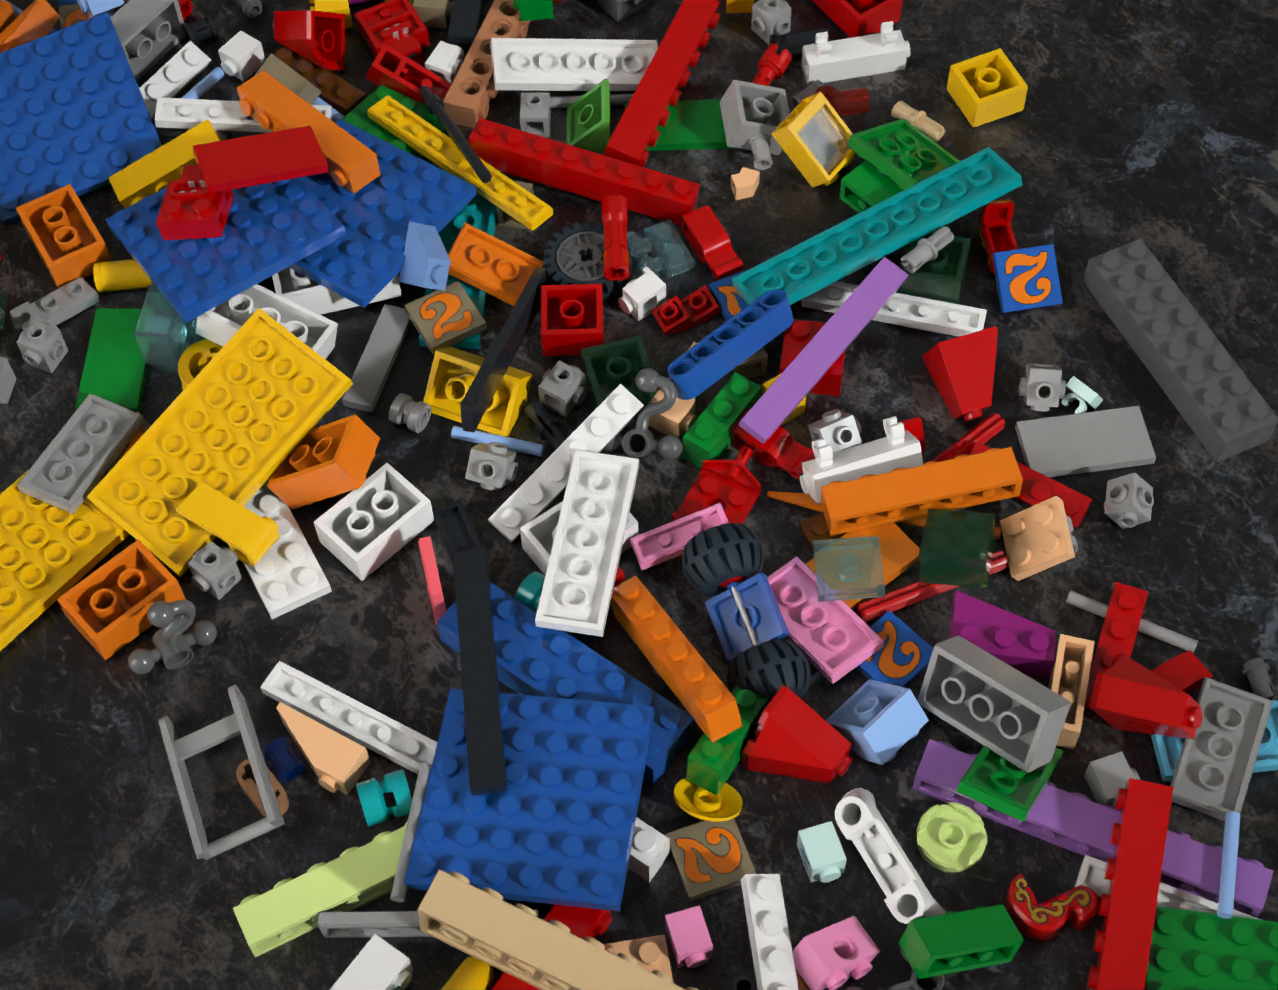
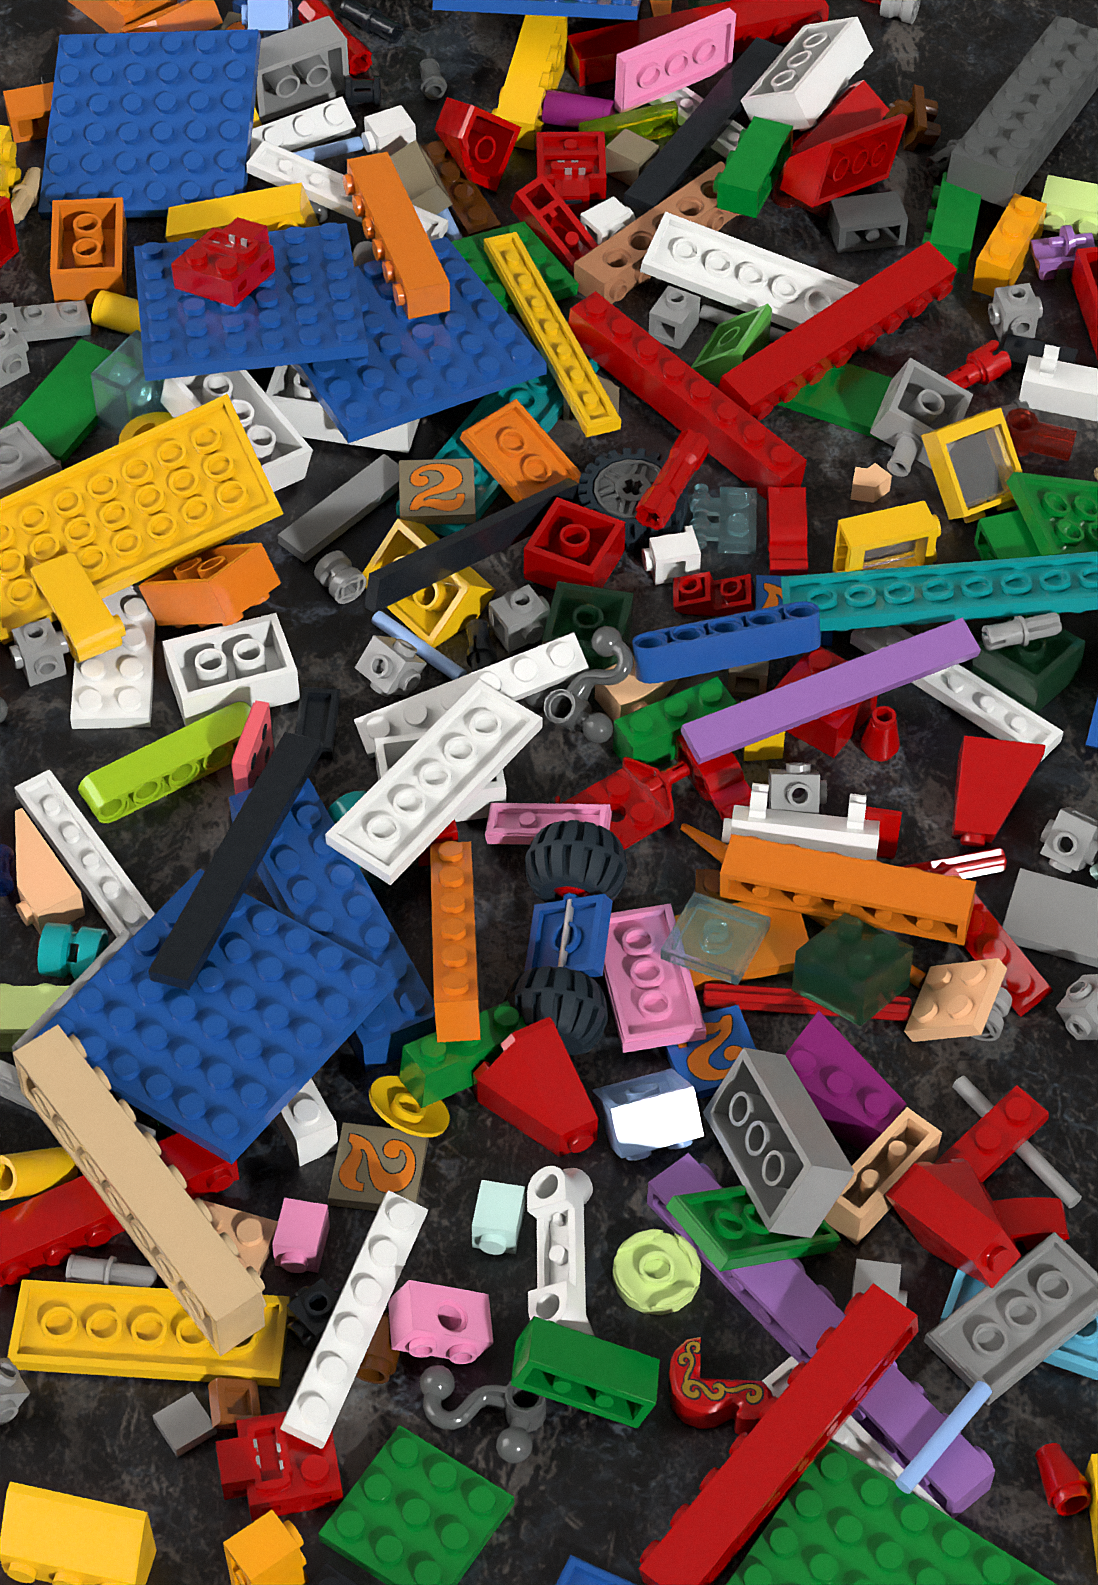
camera: 25 degrees right, 5 degrees down
(259, 159) = (317, 239): red tile -> none
(368, 613) = (165, 764): none -> lime beam
(425, 258) = (444, 417): medium blue slope -> none
(436, 107) = (563, 265): black bar -> none
(791, 222) = (887, 539): none -> yellow window
(867, 366) = (881, 735): none -> red cone

